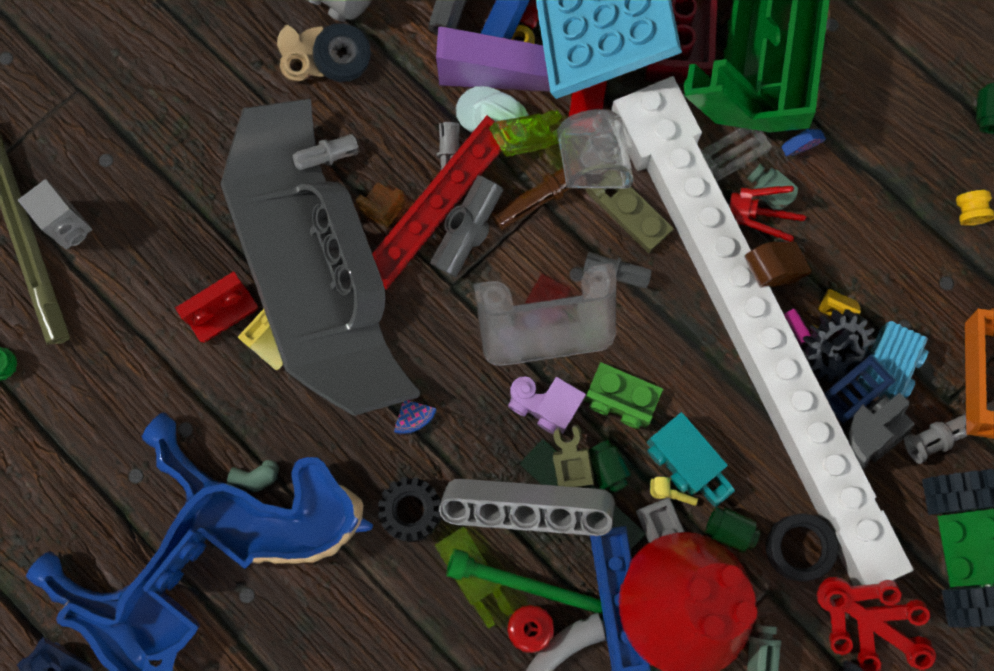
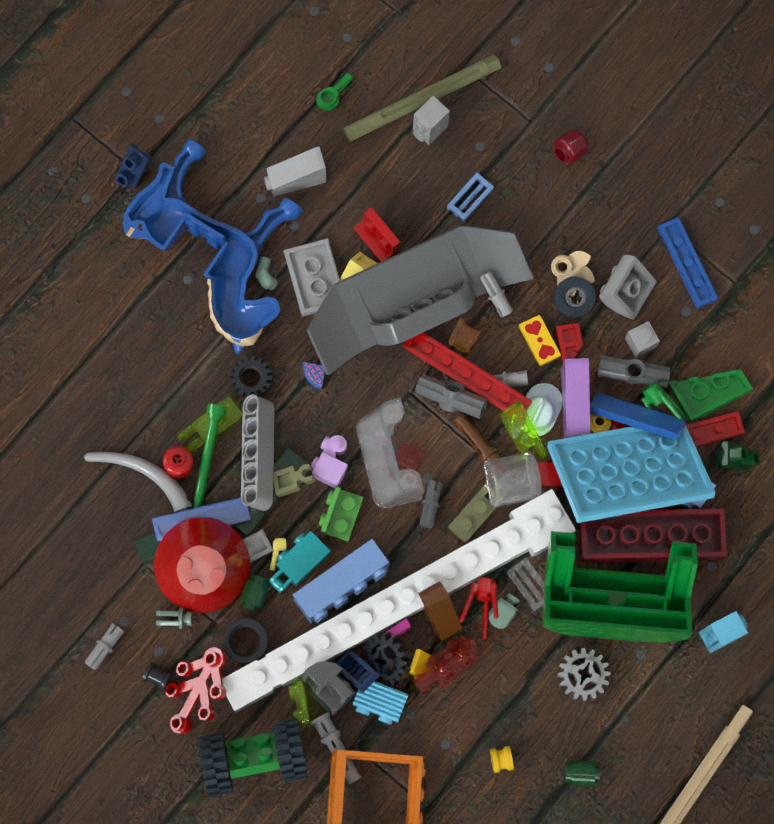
camera: 80 degrees right, 0 degrees up
(104, 414) = (296, 173): none -> light grey slope
(126, 36) = (570, 147): none -> dark red head
(197, 197) = (458, 211): none -> medium blue tile
(264, 408) = (311, 273): none -> light grey tile
(397, 106) = (539, 340): none -> yellow tile
(403, 68) = (569, 340): none -> red tile
(609, 467) = (290, 506): dark green brick -> none
(728, 399) = (341, 581): none -> medium blue brick
(803, 141) = (541, 633): blue tile -> none
(840, 262) = (449, 665): none -> clear red brick
(877, 88) = (569, 669): none -> light grey gear
(909, 474) = (297, 693): none -> clear neon green plate

